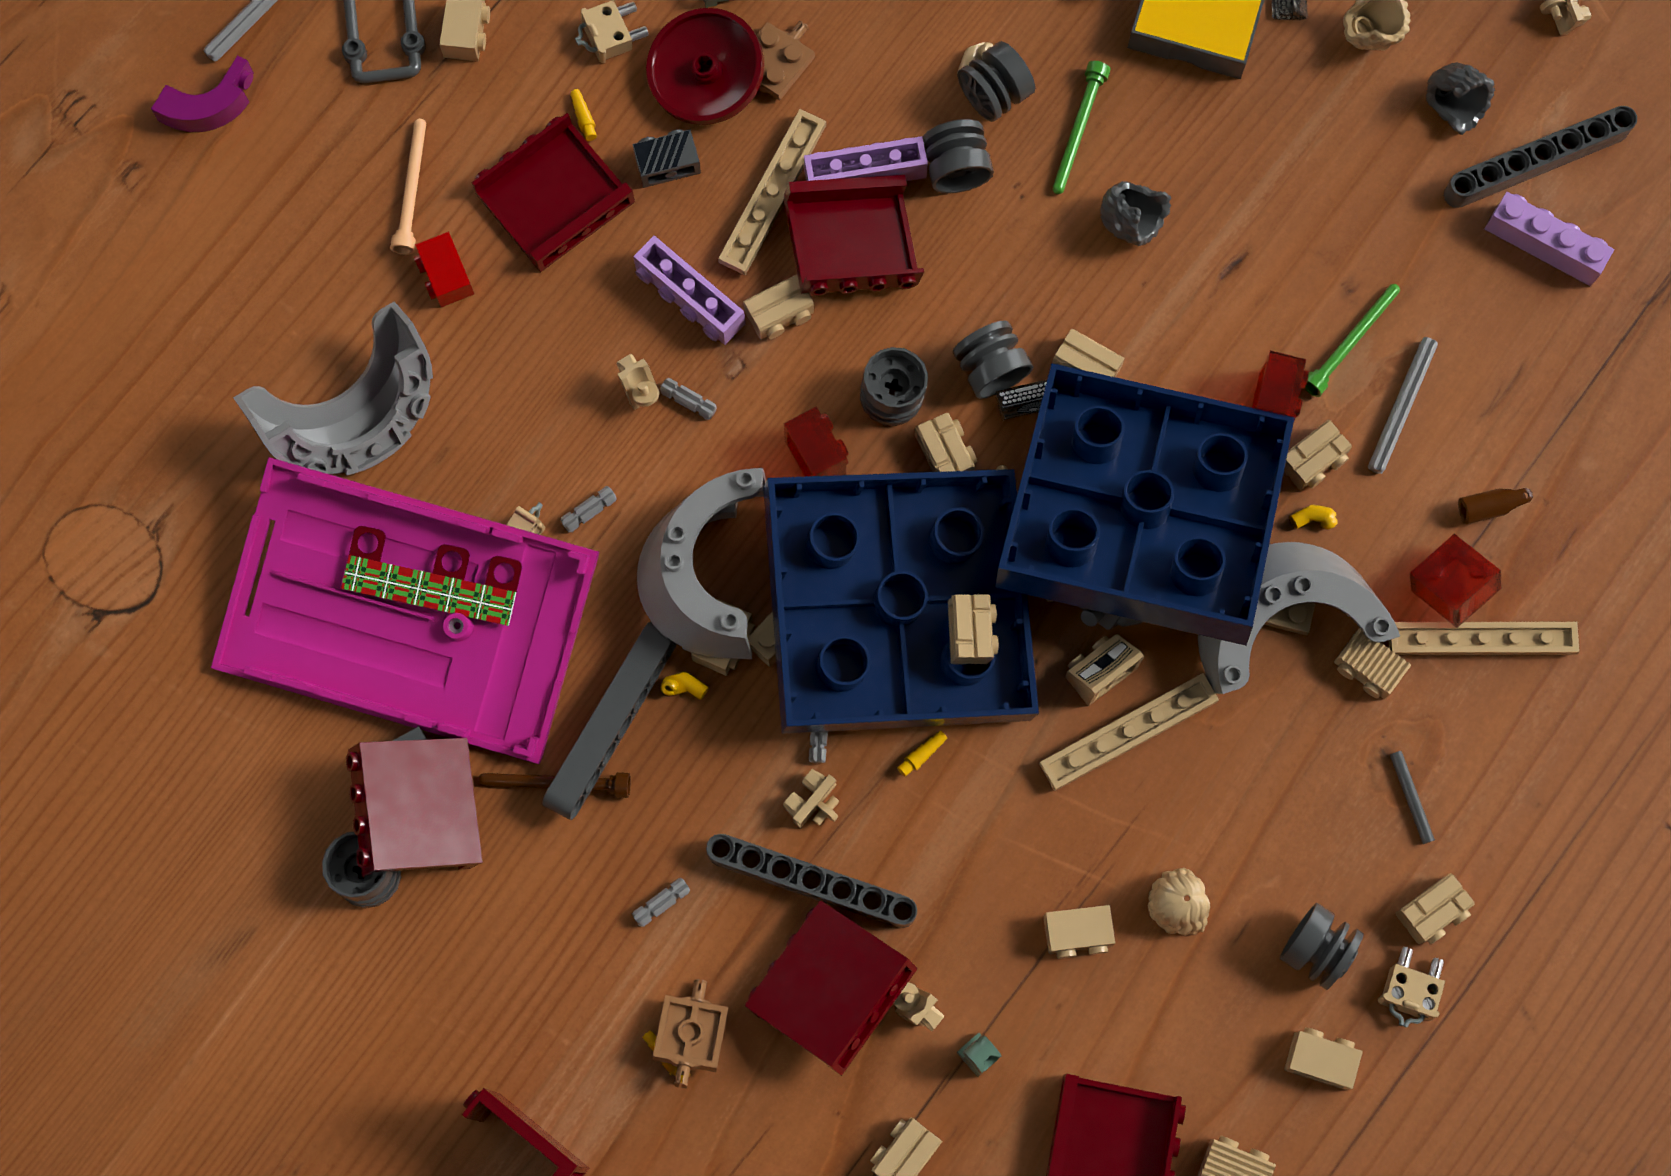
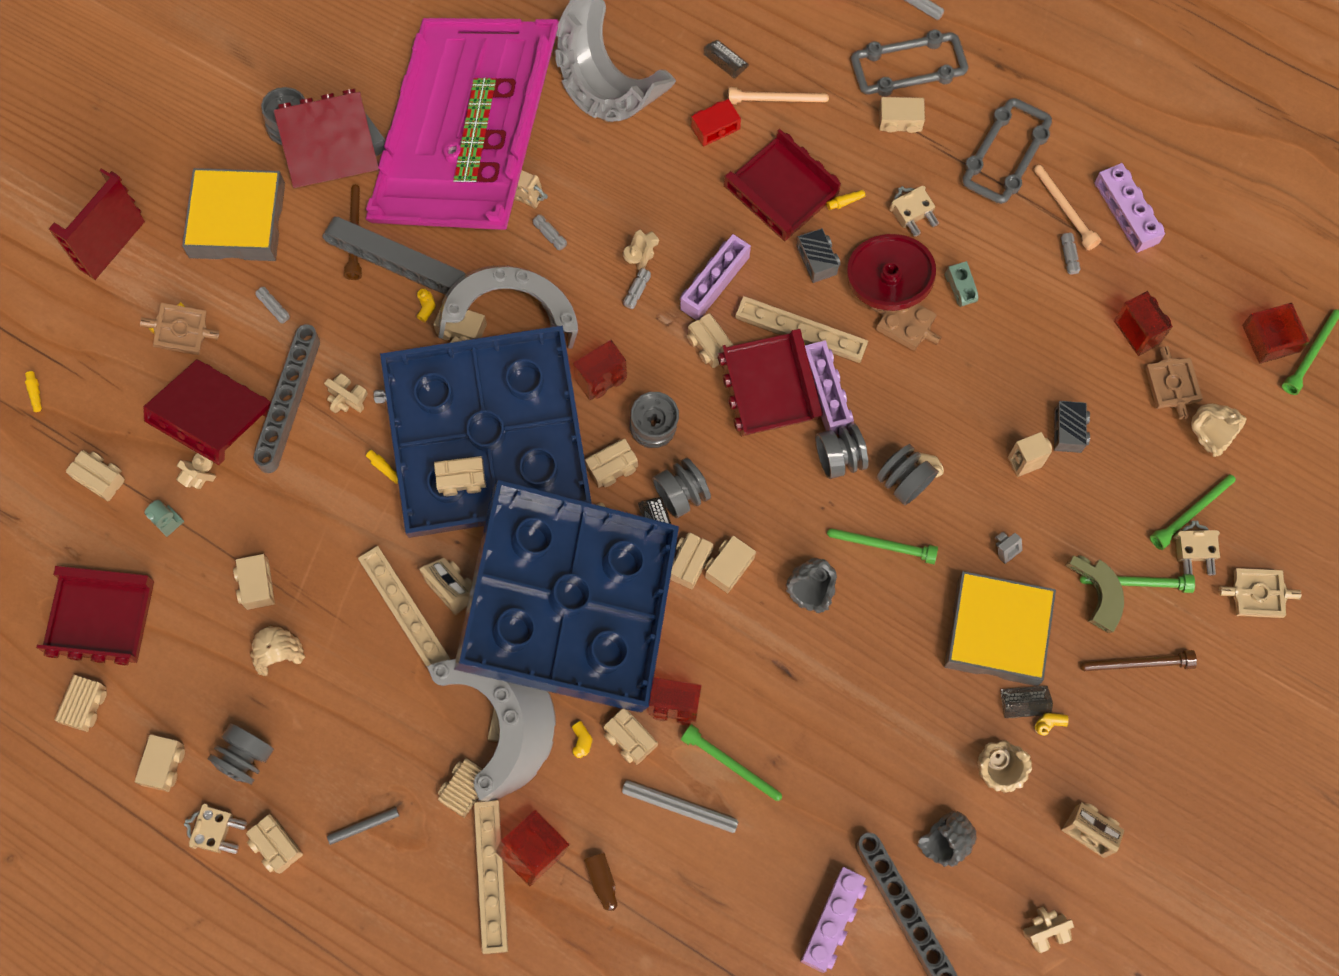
camera: 85 degrees right, 5 degrees down
(339, 248) = (725, 58): none -> clear smoke slope
(512, 952) = (233, 214): none -> yellow tile
(1095, 313) = (729, 564): none -> tan brick

